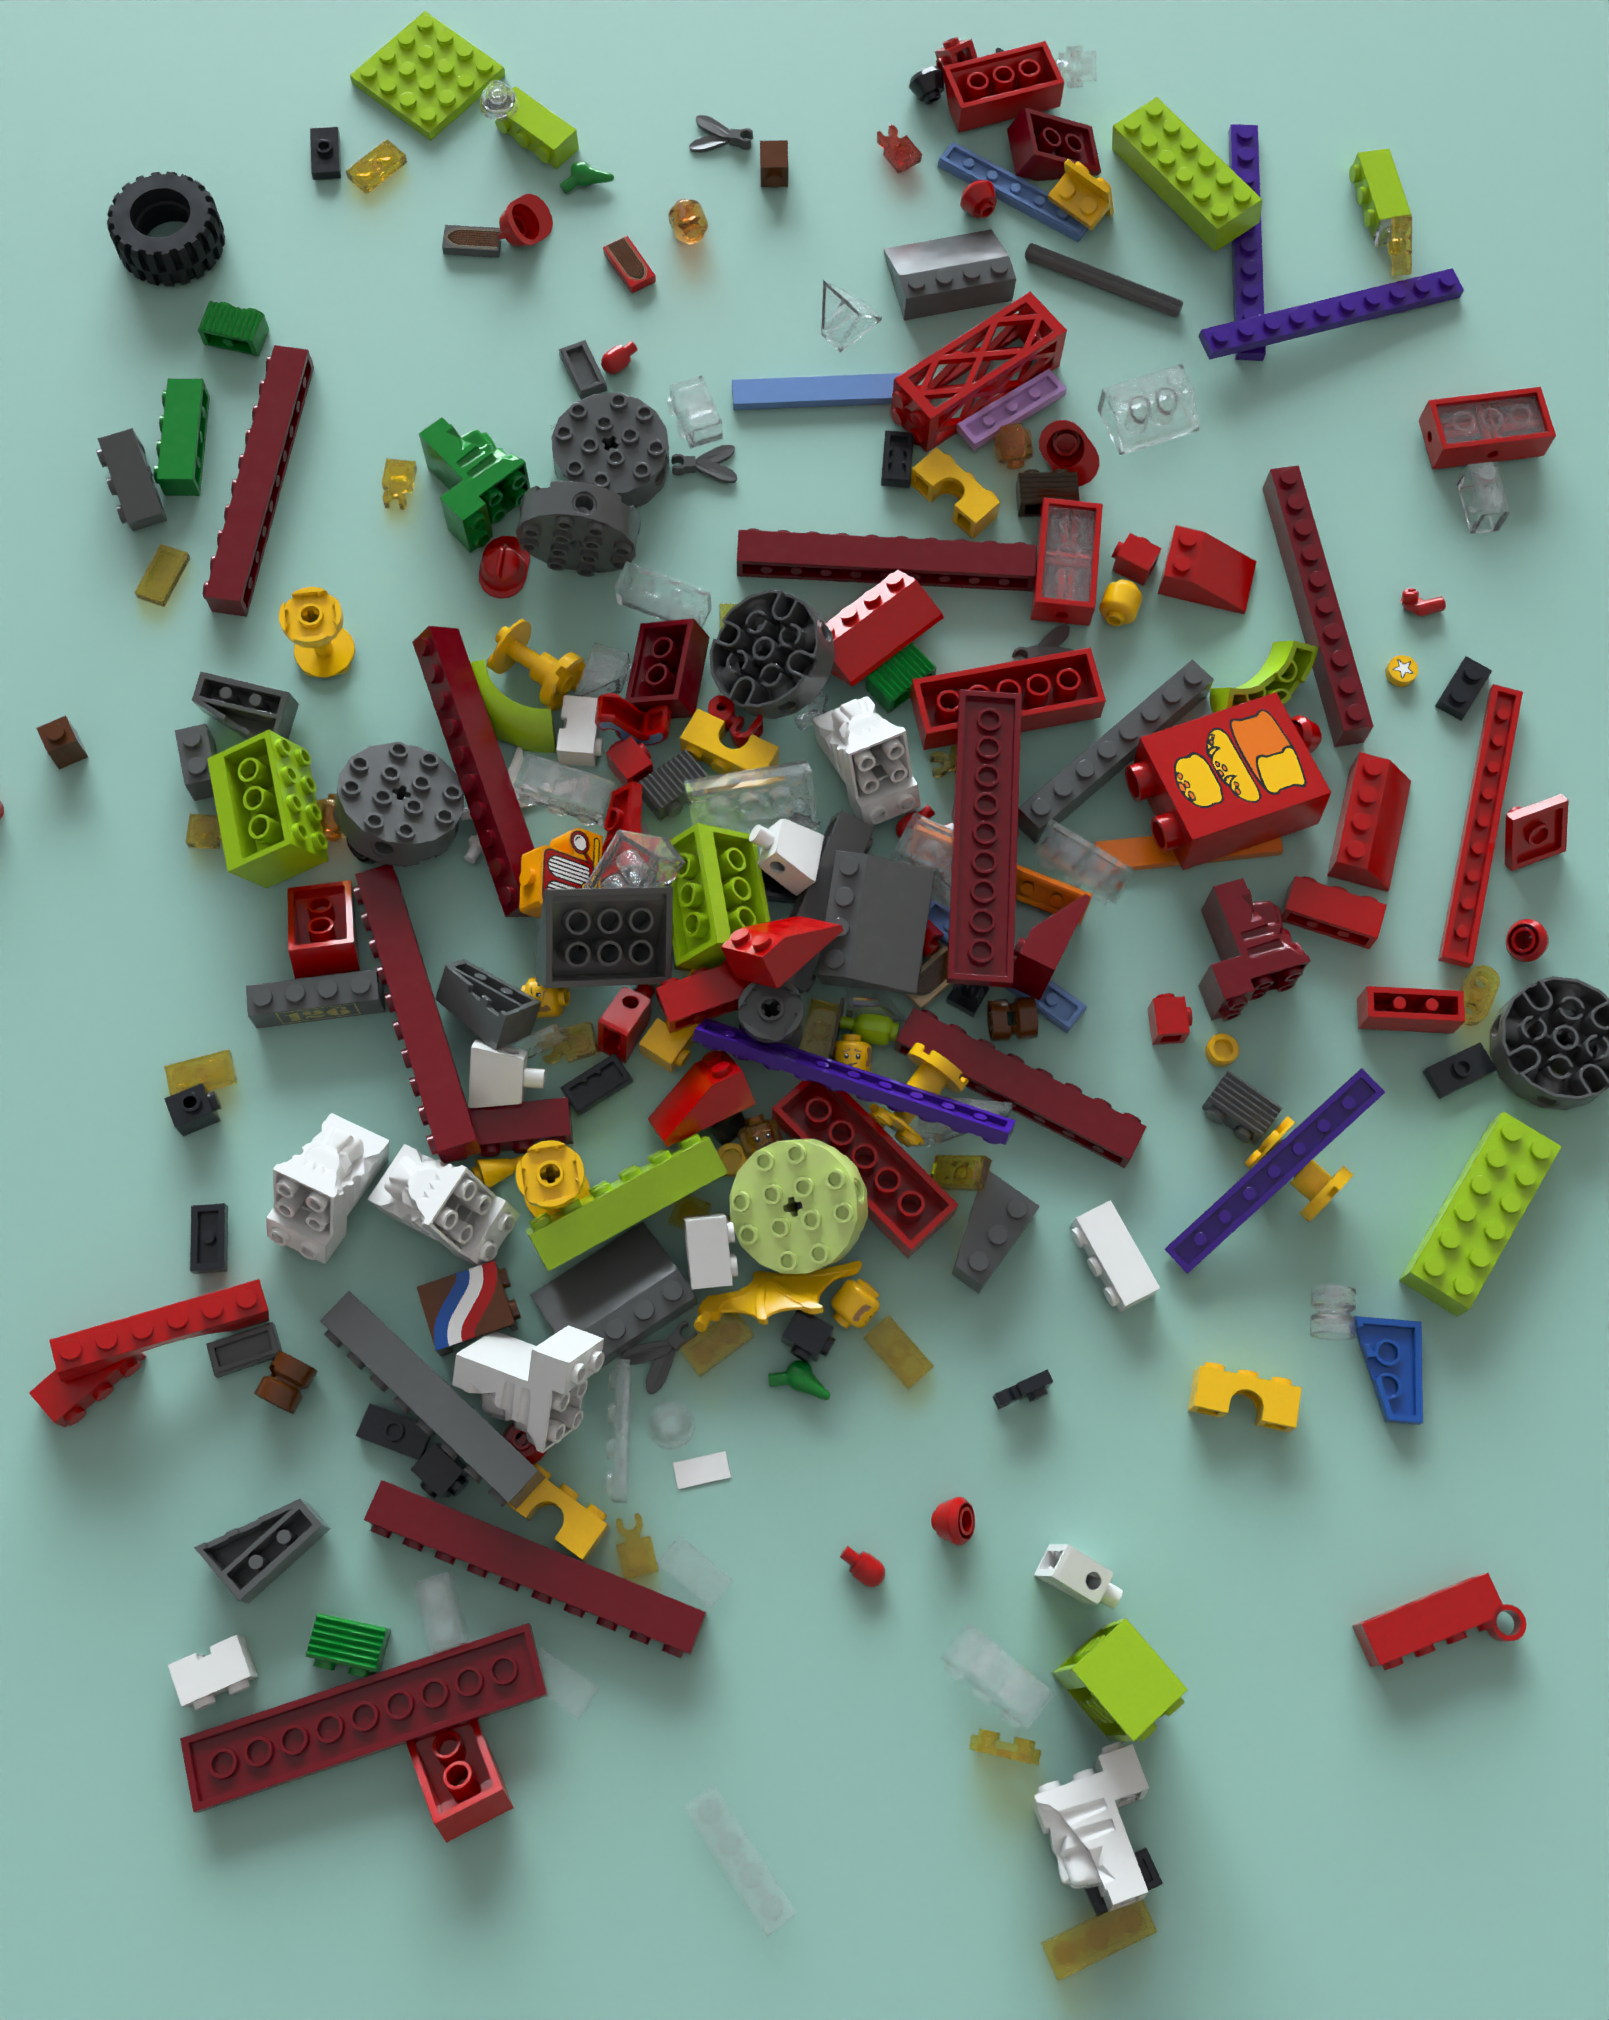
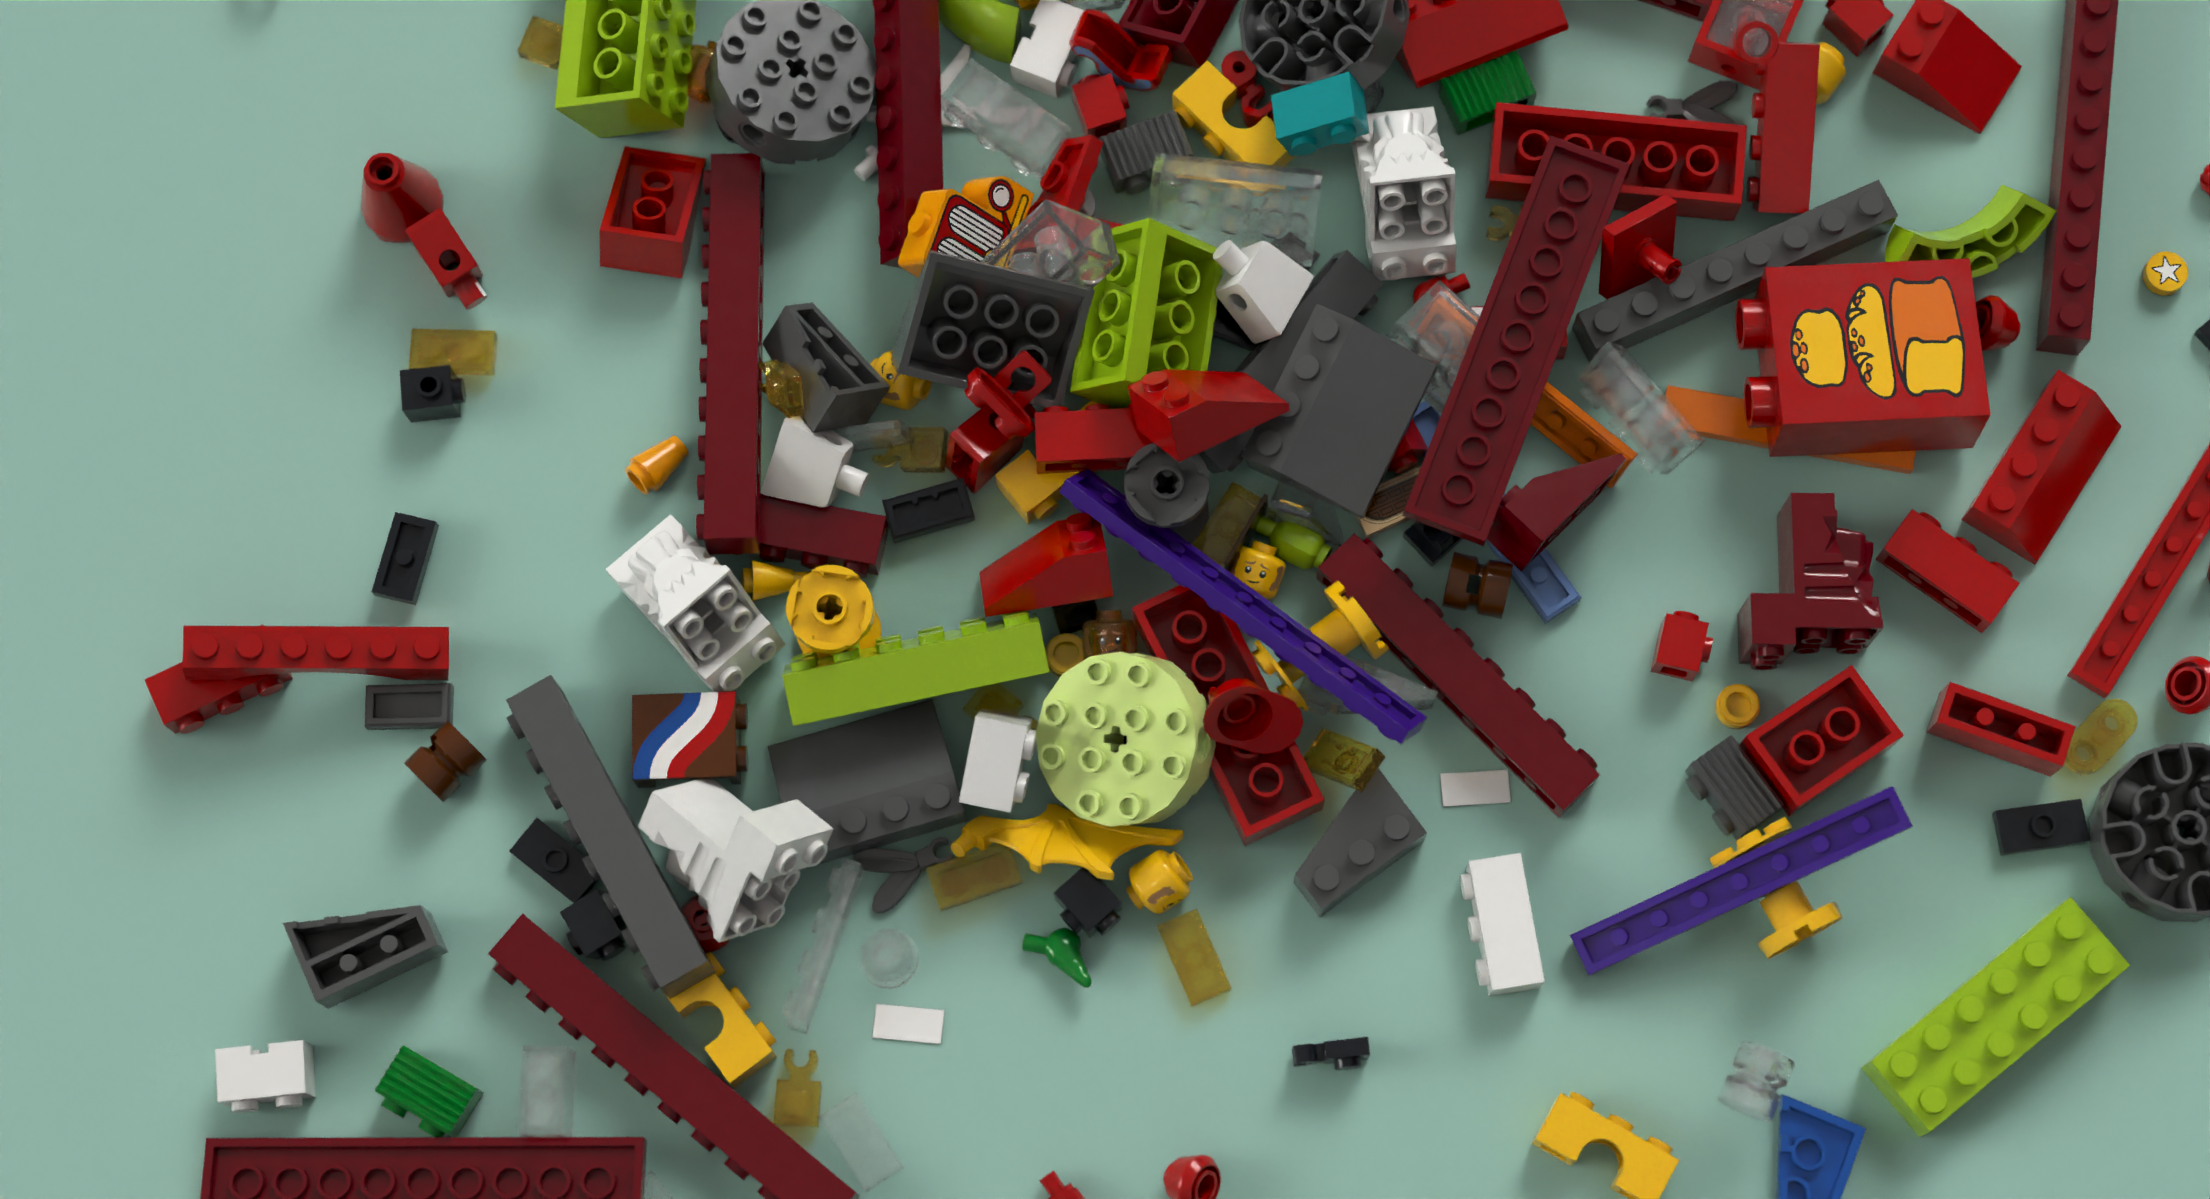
camera: 25 degrees right, 5 degrees up
(126, 973) = (397, 196): none -> red cone
(169, 998) = (442, 247): none -> red torso
(315, 999) = (616, 299): dark grey brick -> none
(323, 1186) = (558, 537): white brick -> none
(381, 1112) = (655, 465): none -> light orange cone
(462, 1024) = (783, 387): none -> clear yellow plate
(621, 981) = (1009, 407): none -> red bracket
(792, 720) = (1320, 114): none -> teal brick
(887, 1160) = (1251, 717): none -> red piece
(1046, 751) = (1639, 248): none -> red tile
(1058, 1165) = (1475, 788): none -> white sticker
(1115, 637) = (1784, 121): none -> red hinge
(1292, 1054) = (1821, 740): none -> red brick

